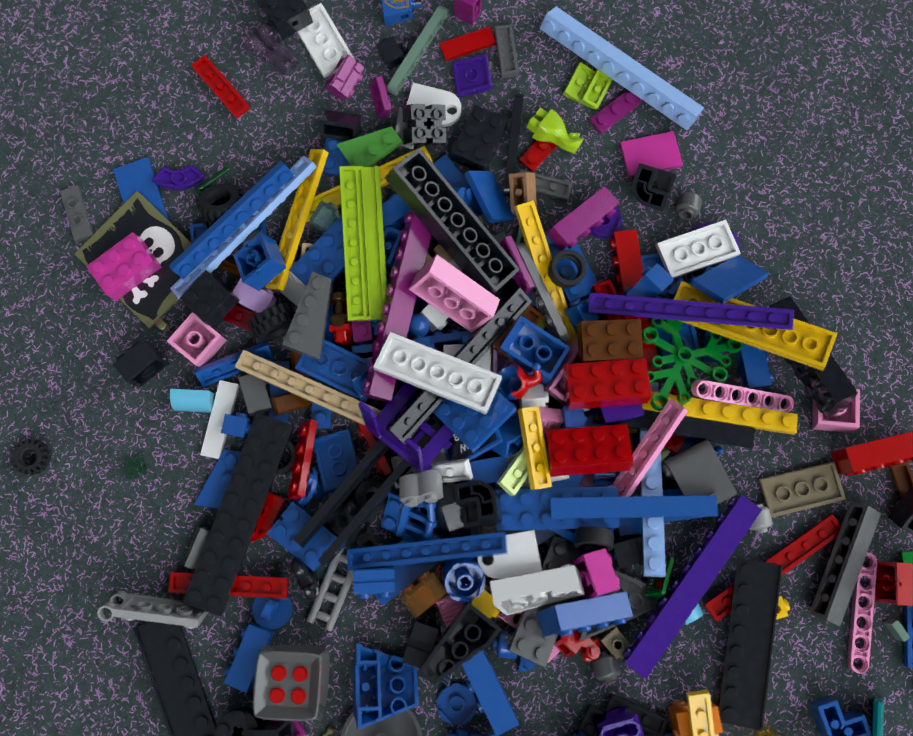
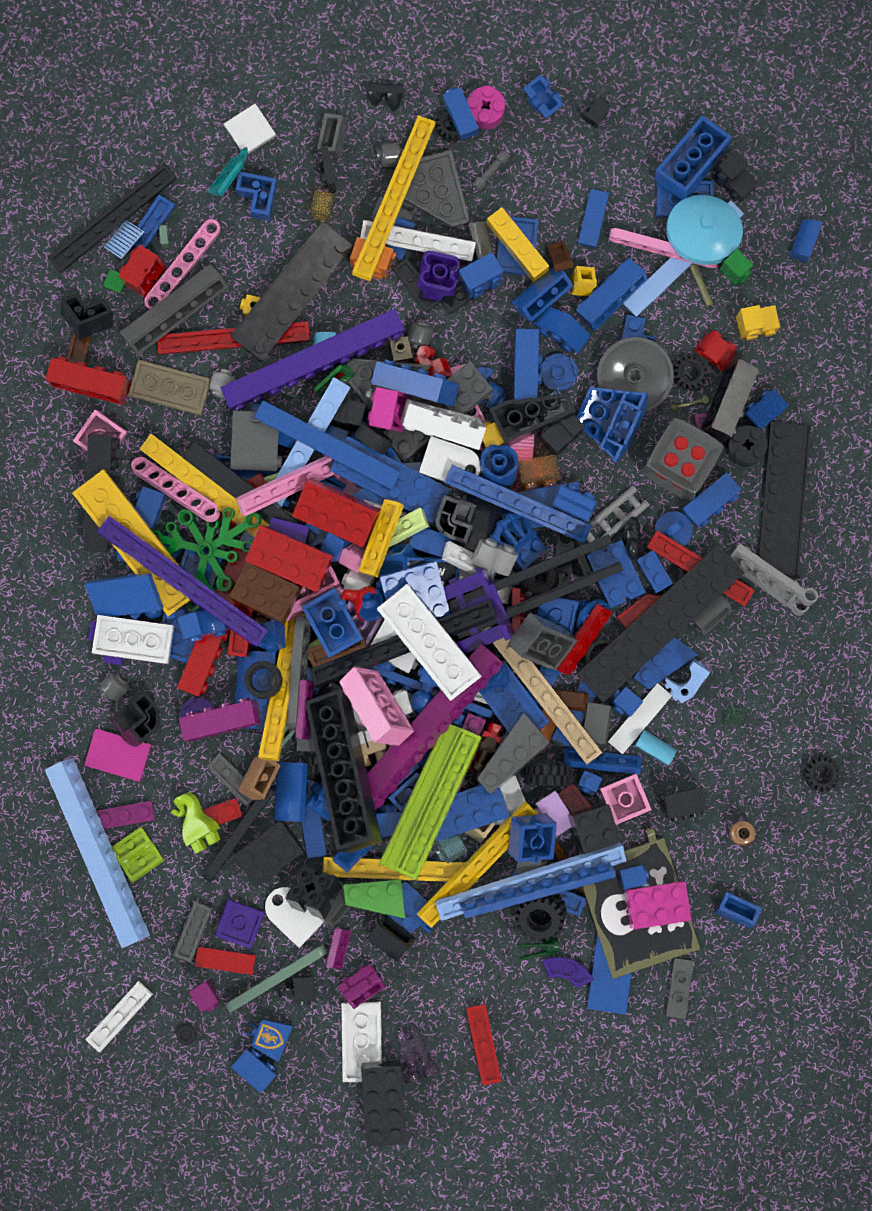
camera: 155 degrees left, 5 degrees up
(52, 300) = (738, 910): none -> blue brick
(78, 366) = (747, 837): none -> medium nougat head
(157, 278) = (633, 877): none -> blue brick
(182, 481) = (698, 674): none -> light blue tile
(236, 339) = (588, 783): none -> blue brick
(269, 557) = (653, 572): none -> blue brick
(336, 434) = (542, 641): none -> dark grey brick

